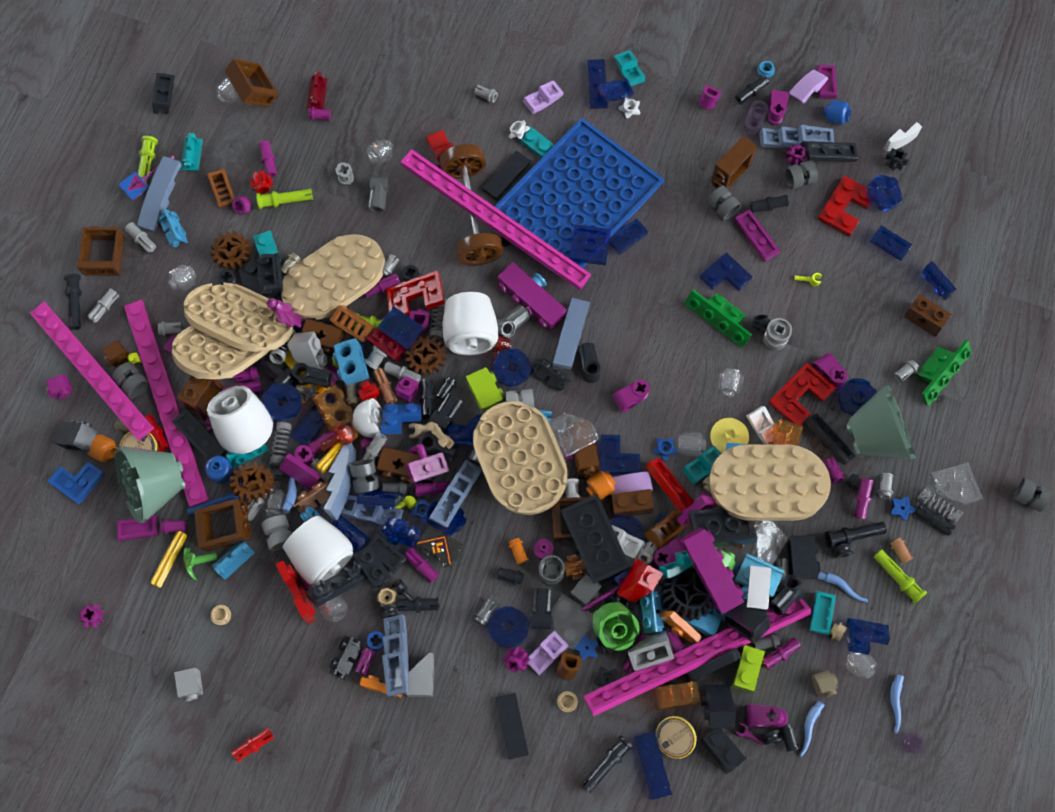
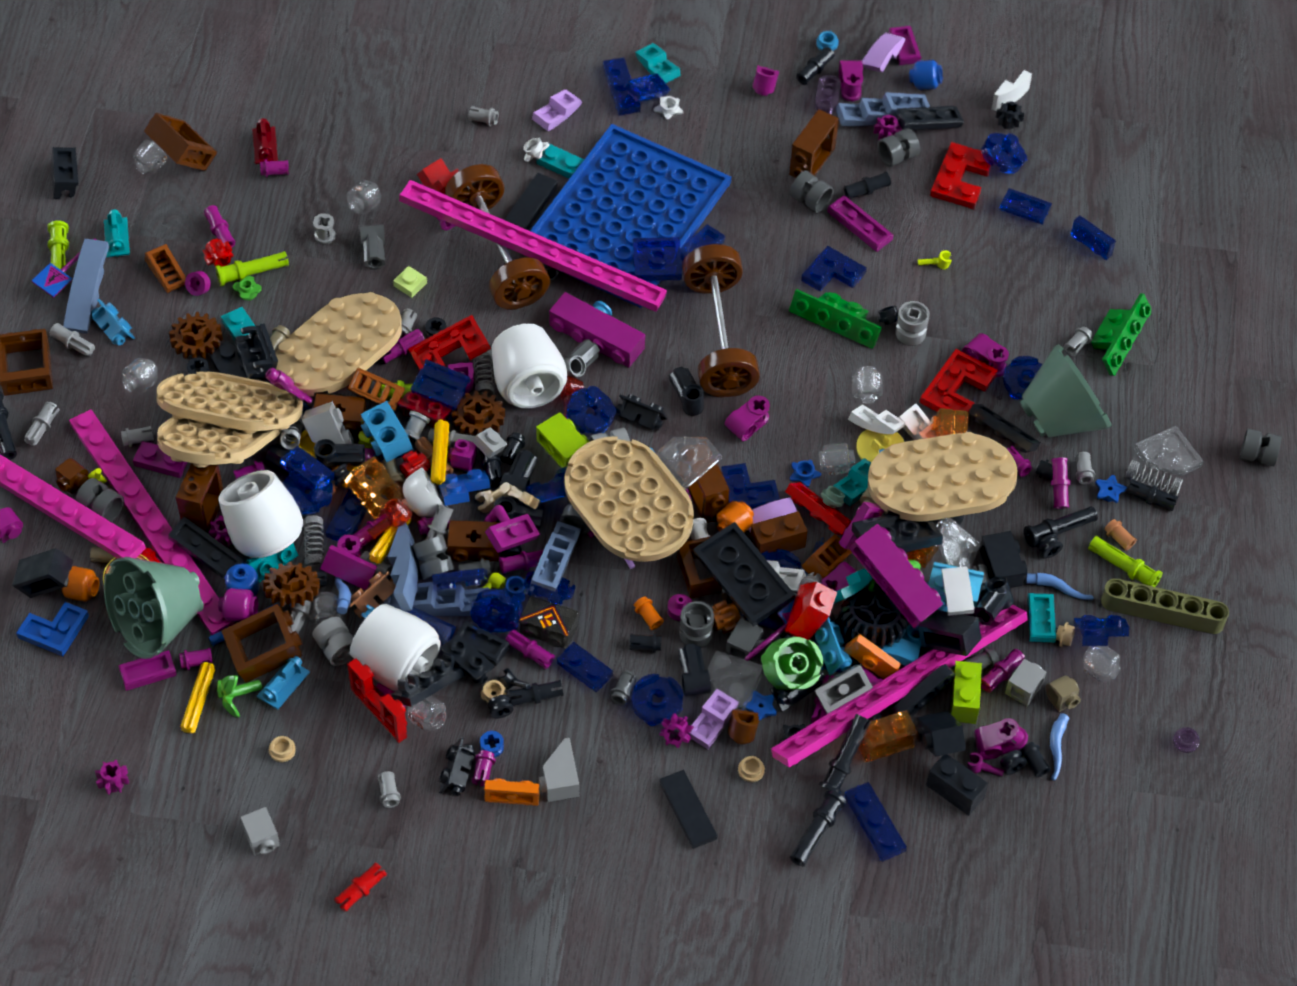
camera: 15 degrees left, 15 degrees down
(211, 490) = (238, 604): none -> magenta head
(280, 218) = (247, 293): none -> bright green plate
(283, 386) = (307, 469): none -> clear blue plate
(291, 665) = (389, 794): none -> light grey pin
(388, 386) = (439, 454): none -> yellow axle
(396, 655) = (522, 748): sand blue slope -> none
(400, 229) = (410, 281): none -> yellowish green plate
(427, 383) = (489, 442): none -> light grey plate
(460, 587) = (585, 667): none -> clear blue plate
(571, 333) = (656, 362): sand blue slope -> none
(626, 262) = (727, 370): none -> reddish brown axle
(635, 716) = (841, 764): none -> black pin
(676, 737) = (896, 781): piece -> none
(681, 477) = (833, 497): none -> sand green plate
(734, 419) = (883, 423): none -> white slope
(797, 668) = (1025, 682): none -> light grey brick
(895, 699) = (1151, 689): medium blue animal -> none
(927, 315) = (1088, 276): reddish brown brick -> none
(932, 622) = (1177, 606): none -> olive beam

